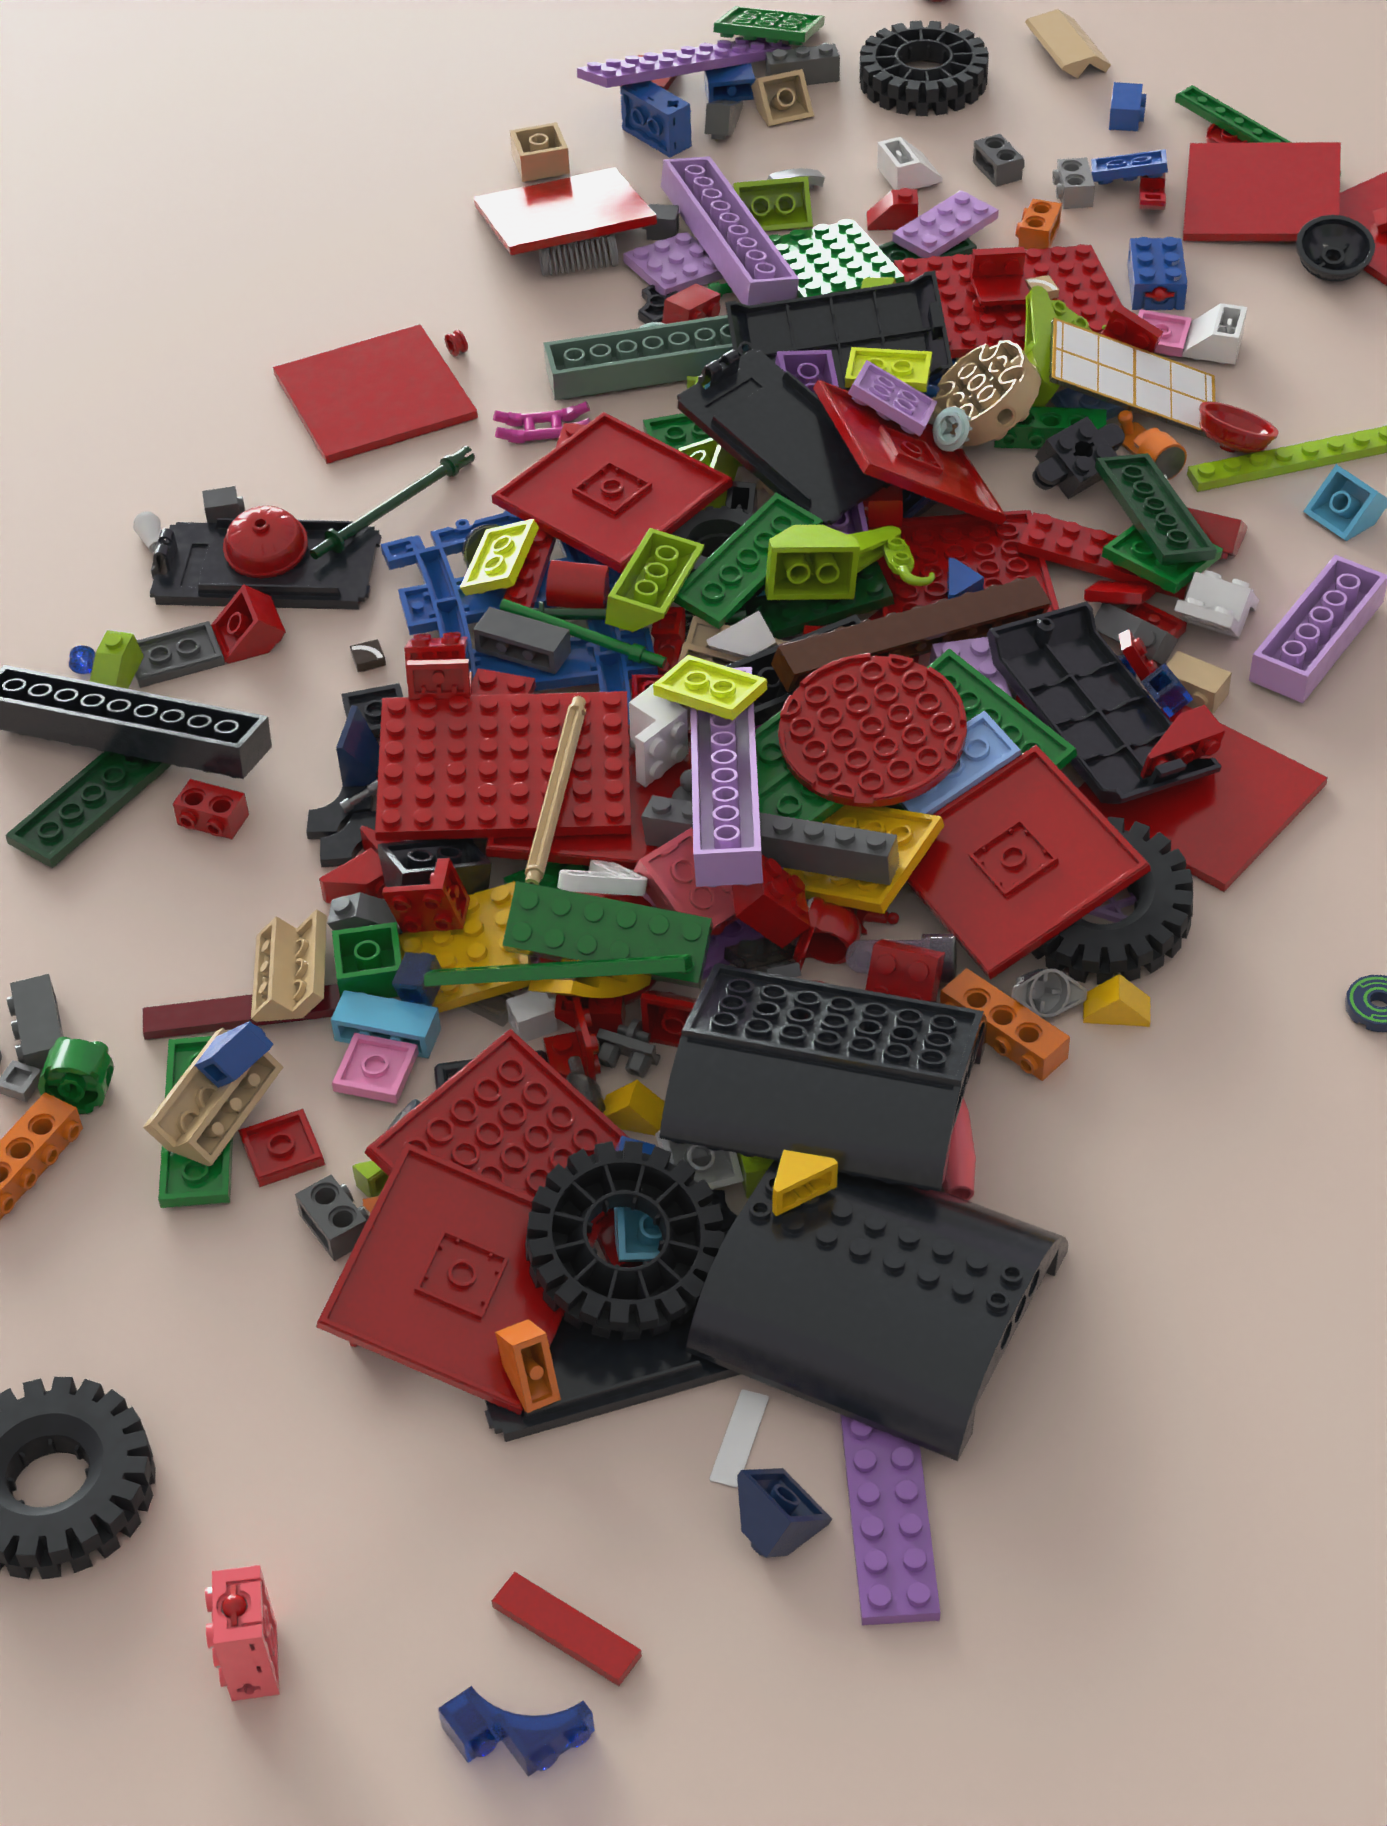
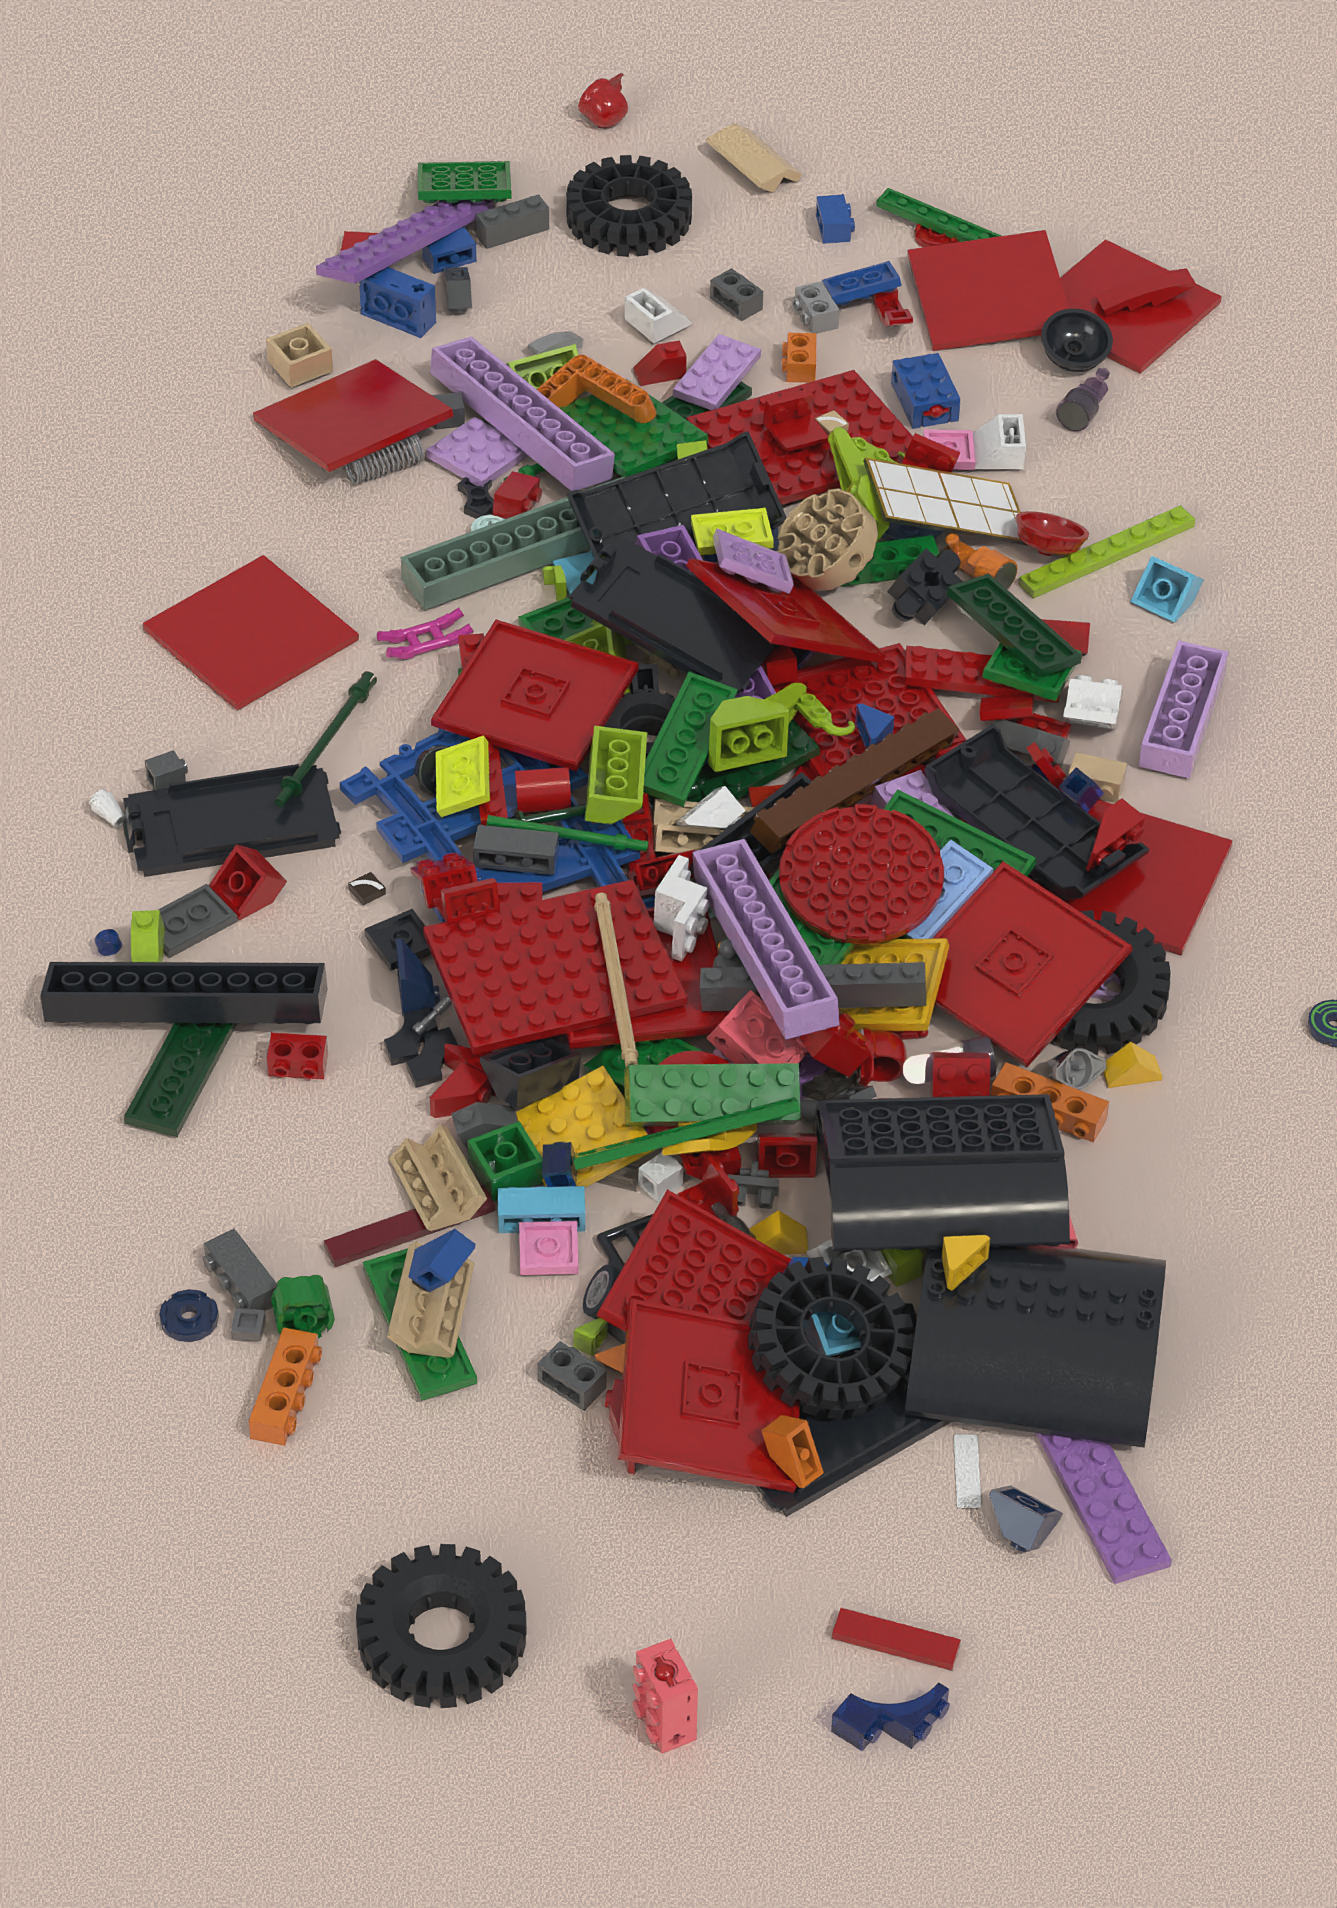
camera: 20 degrees left, 0 degrees up
(264, 542) = (226, 809): red hat -> none
(281, 1147) = (498, 1330): red tile -> none
(430, 906) = (544, 1102): red bracket -> none
(456, 343) = (307, 568): red bush -> none
(603, 878) = (689, 1048): white beam -> none
(710, 687) = (723, 864): neon yellow plate -> none
(782, 98) = (507, 260): tan slope -> none
(810, 207) = (586, 374): none -> orange beam
(943, 427) = (801, 579): light aqua gear -> none
(1321, 308) = (1082, 403): none -> clear purple piece

